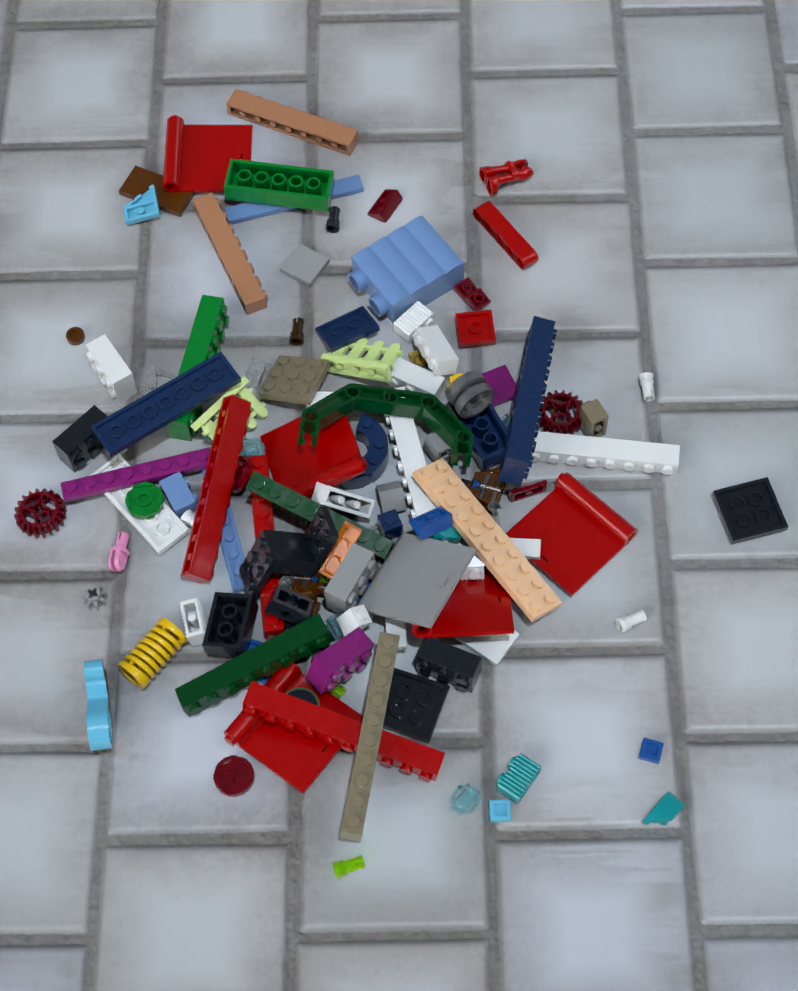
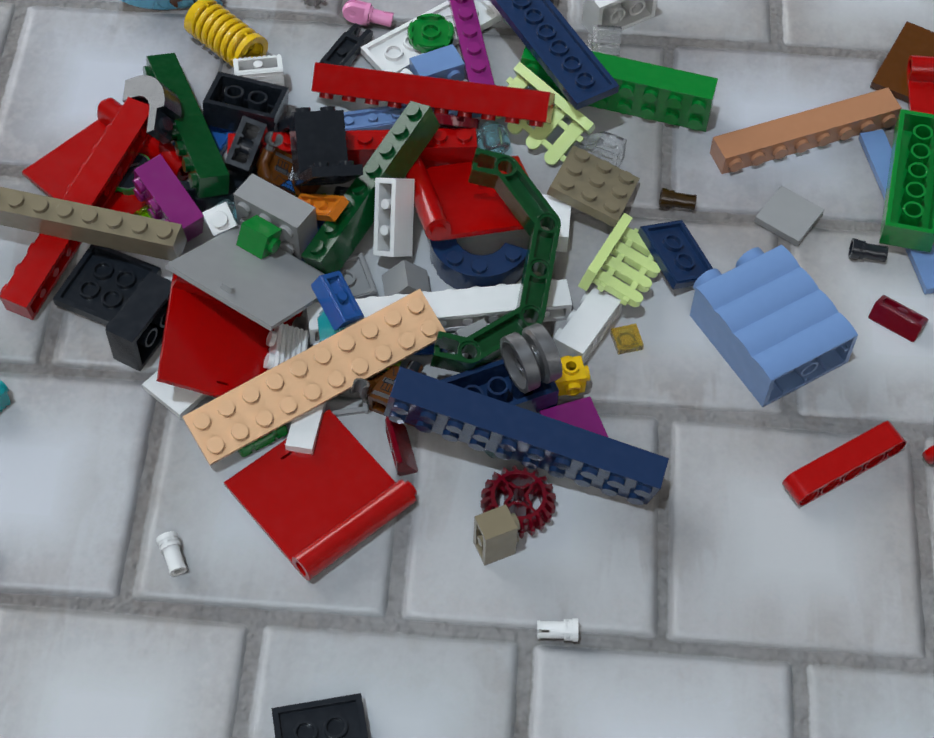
camera: 90 degrees right, 5 degrees down
(142, 207) = (878, 43): medium azure wing -> none
(158, 565) = (347, 46): none -> black hinge
(234, 776) = (63, 113): dark red tile -> none
(241, 677) = (162, 101): none -> arch
(379, 582) = (259, 237): none -> green brick
(390, 524) = (357, 272): dark blue brick -> none
(416, 316) = (686, 332): white brick -> none
(436, 350) = (629, 346): white brick -> none
(473, 297) = (736, 412): dark red slope -> none
(475, 328) = (674, 408): red plate -> none
(607, 453) = (445, 553): white brick -> none

